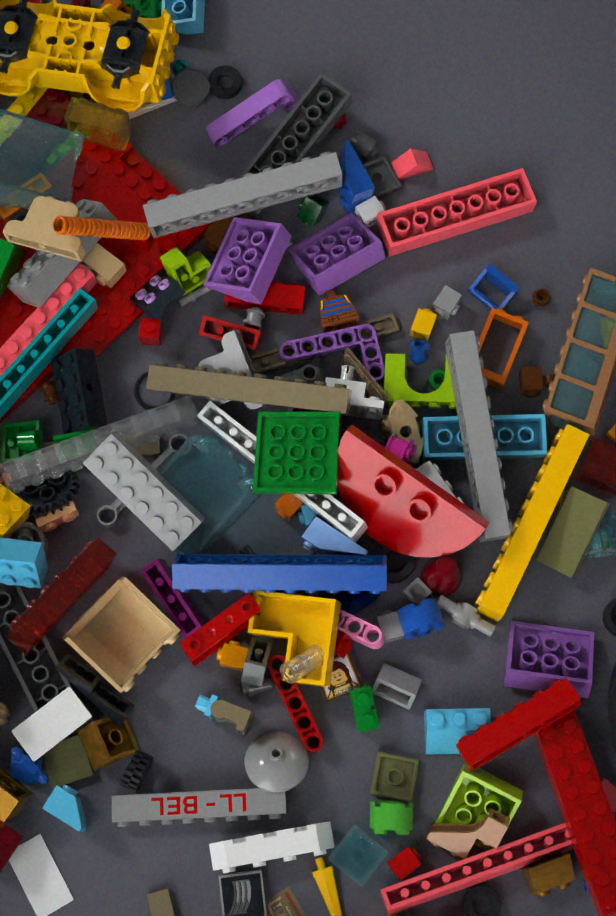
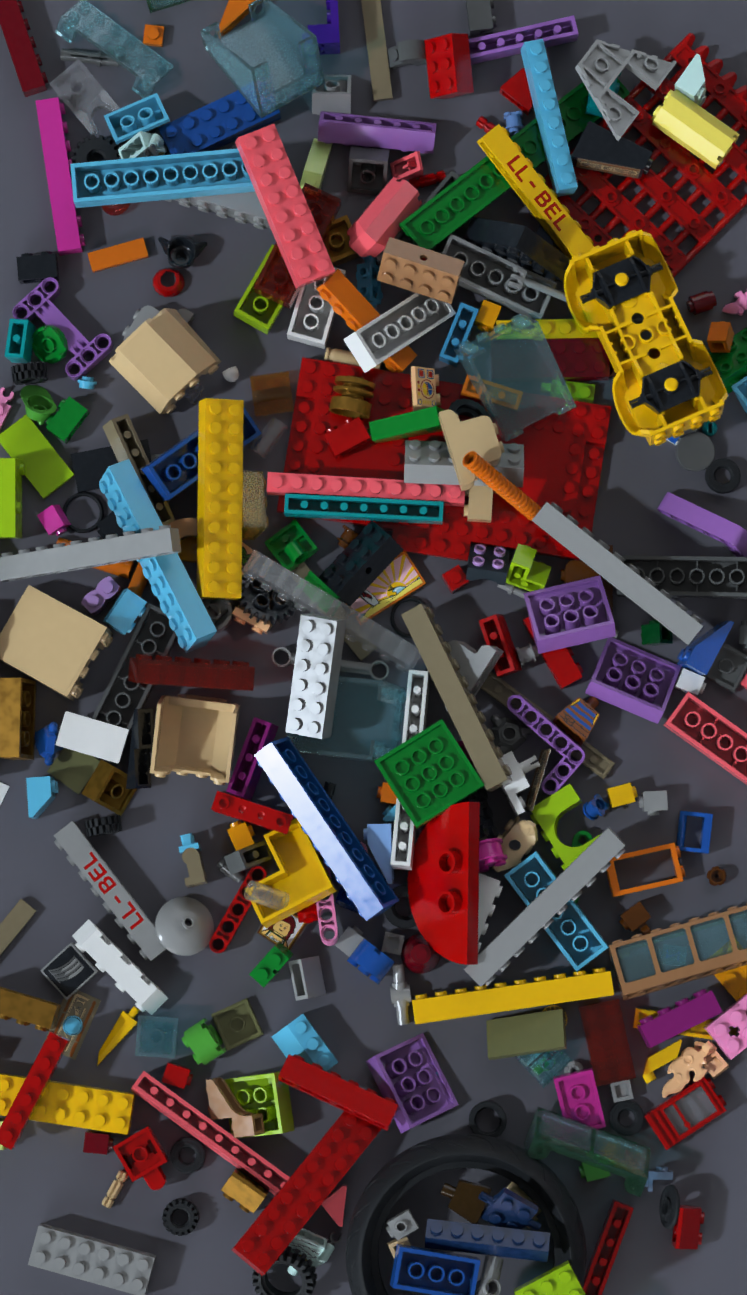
camera: 60 degrees right, 10 degrees up
(99, 123) = (598, 407): clear yellow brick -> none
(117, 385) = (389, 587): none -> tile

